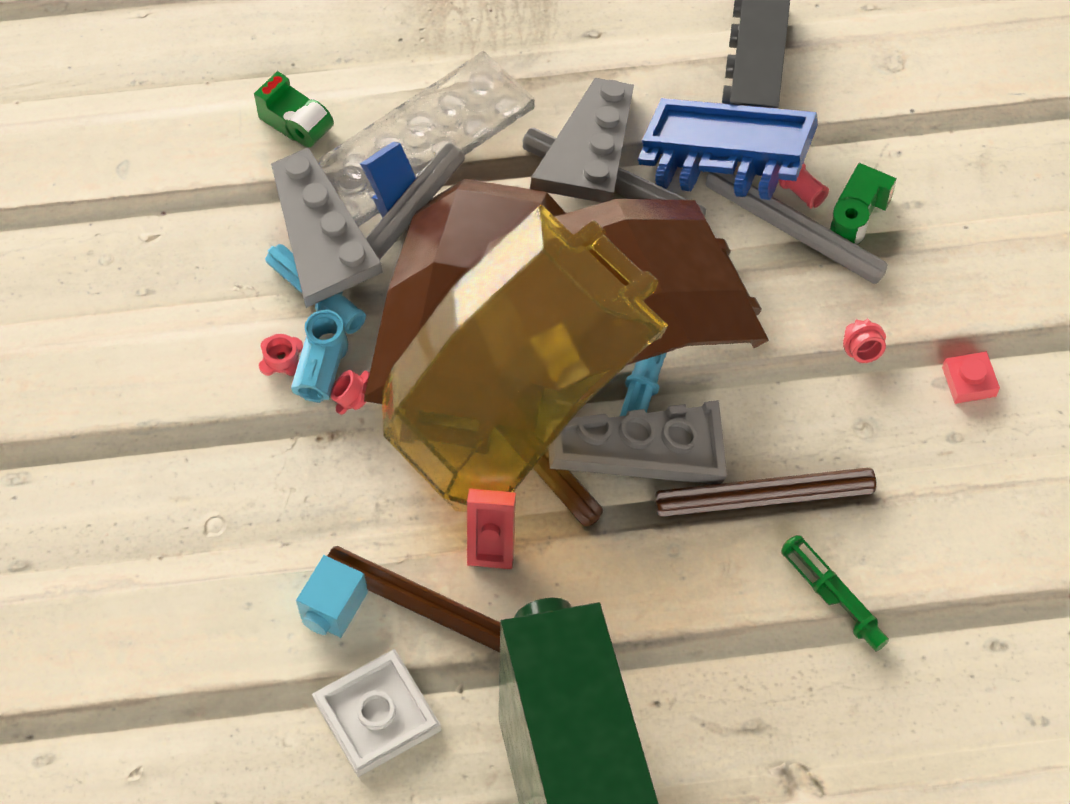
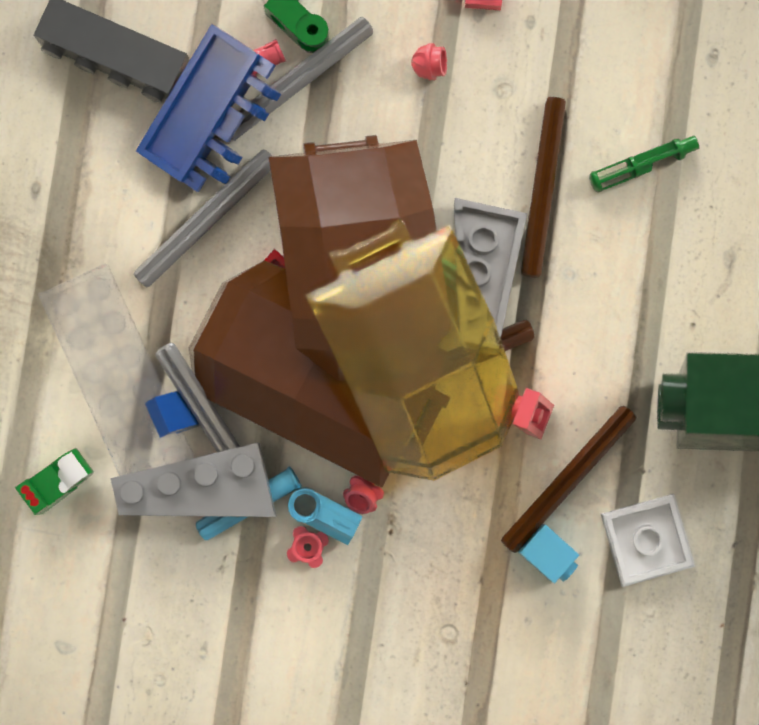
camera: 75 degrees left, 25 degrees up
(589, 147) = (178, 230): light grey wing -> none

